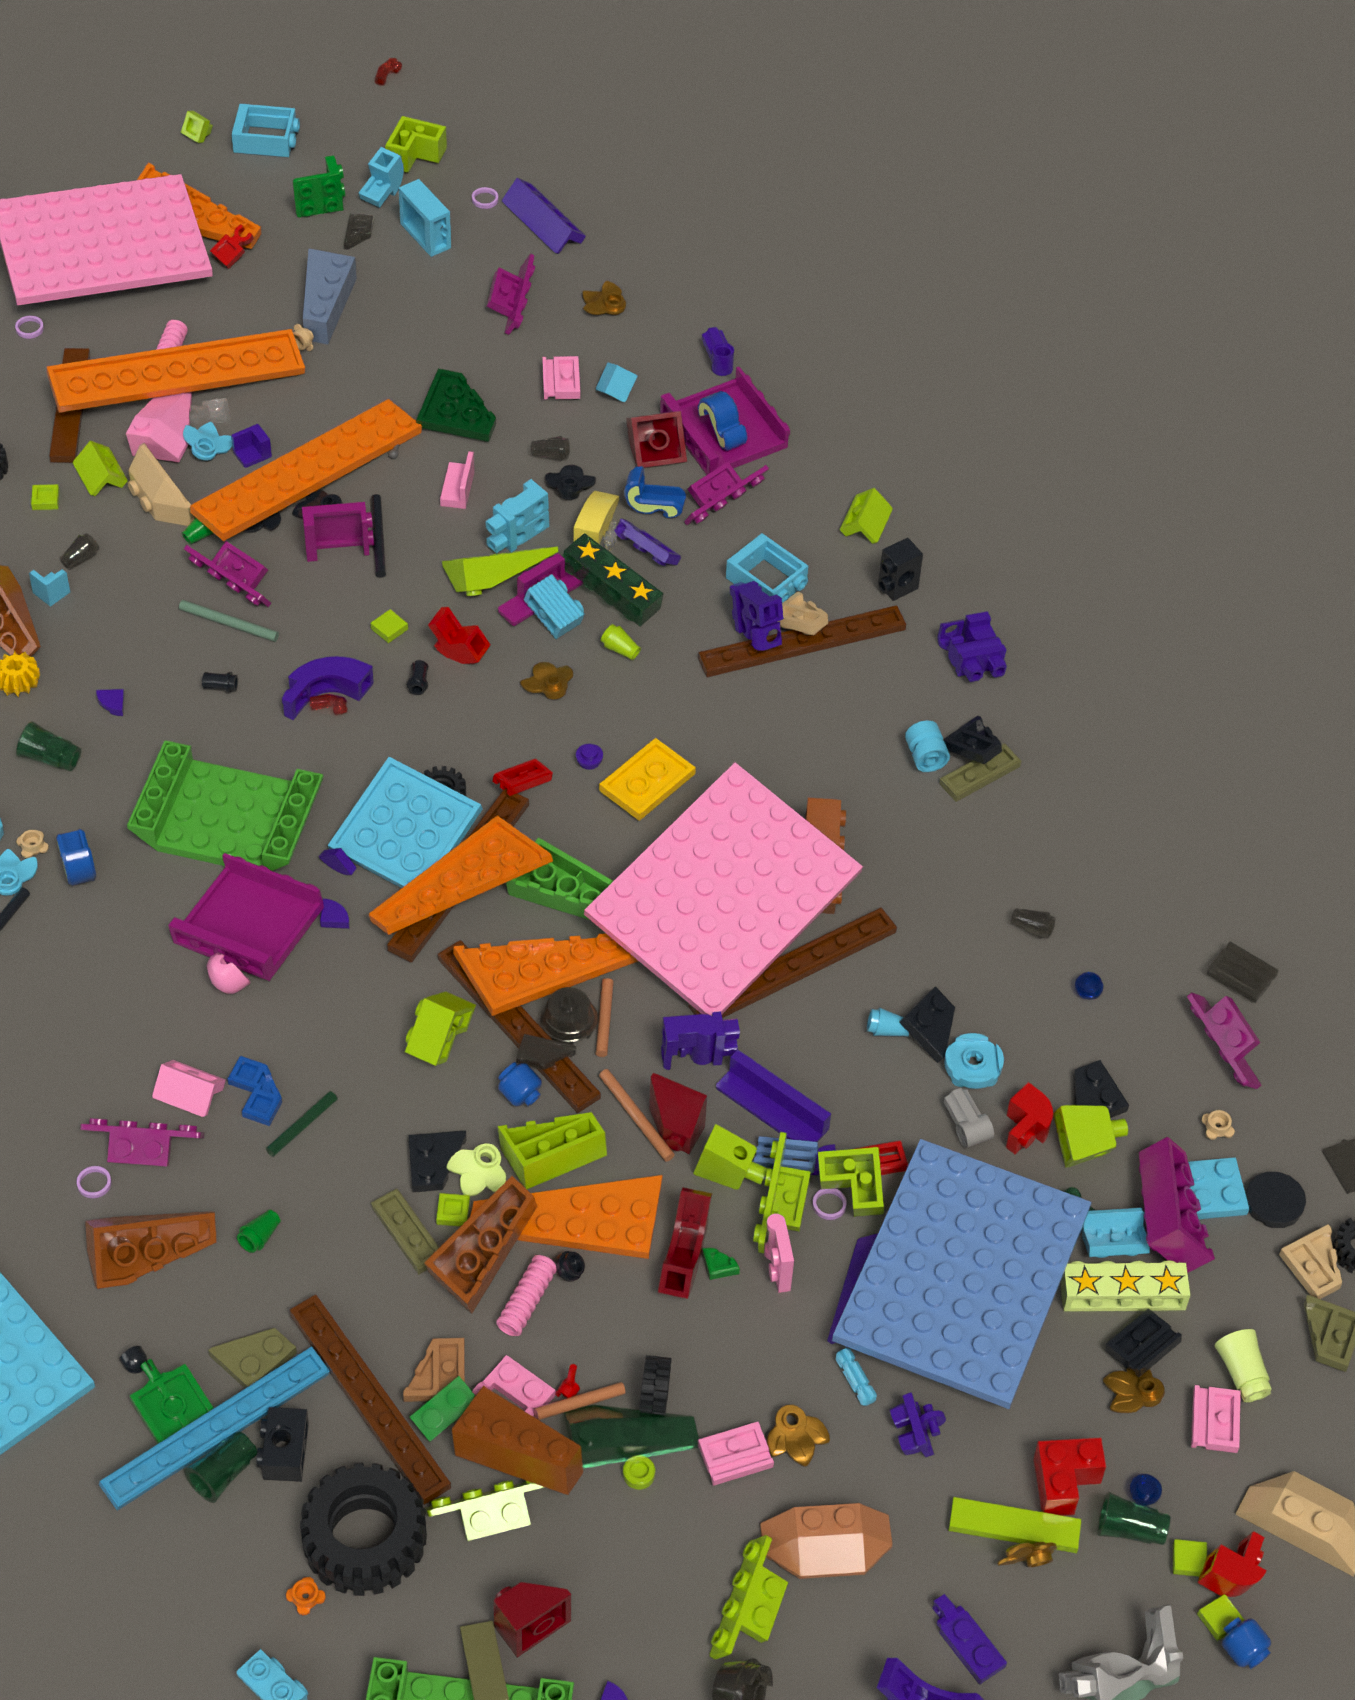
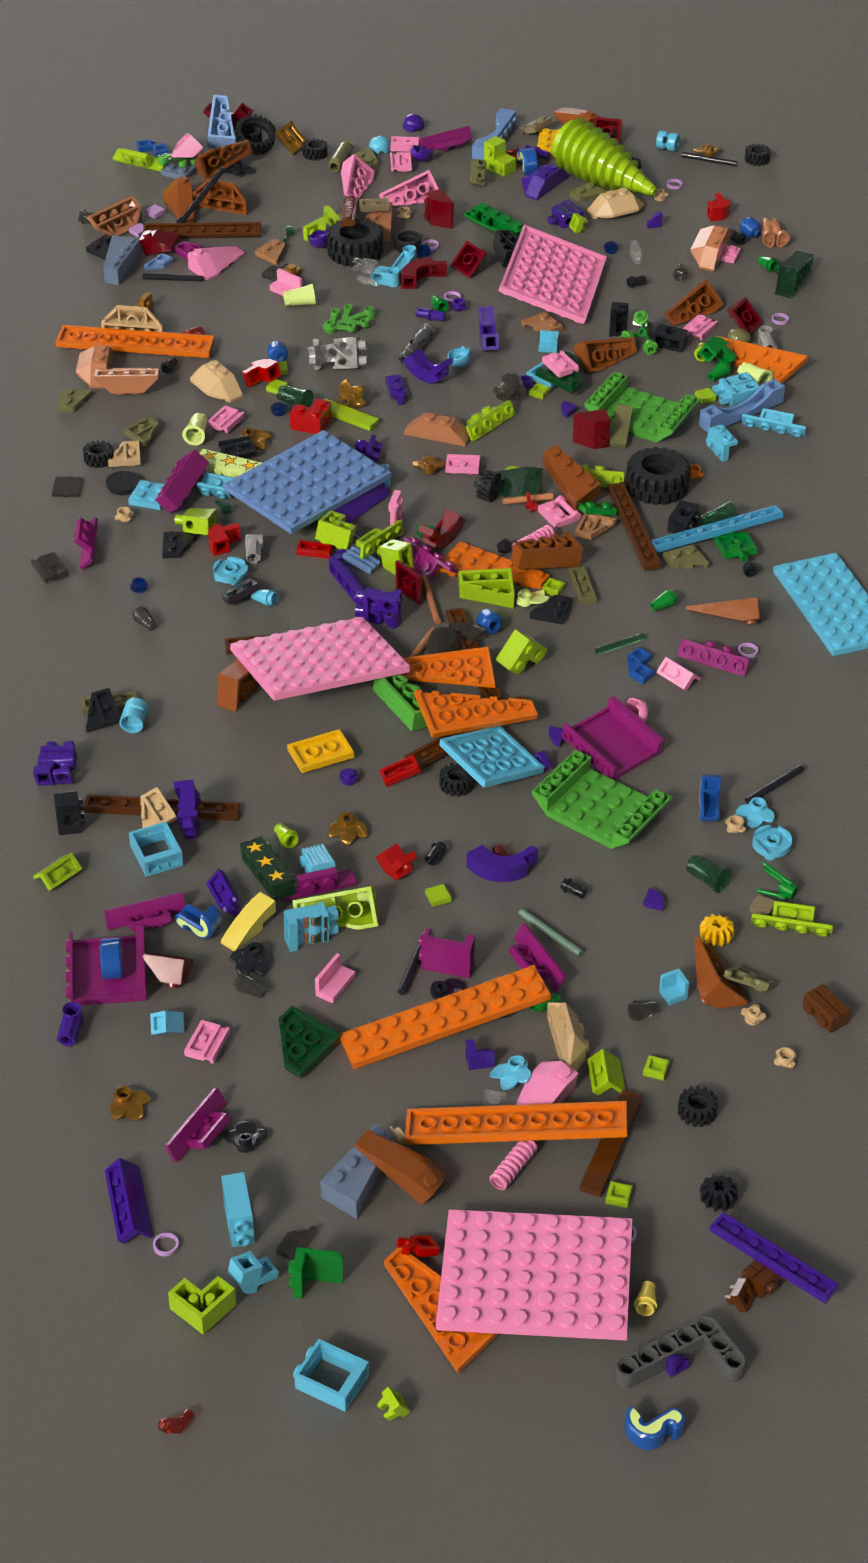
camera: 155 degrees left, 10 degrees down
(45, 357) = (618, 1194): none -> lime tile
(267, 294) = (407, 1168): none -> dark orange wedge
(465, 305) = (245, 1136): none -> black plate
(667, 1179) = (426, 560): none -> magenta bracket

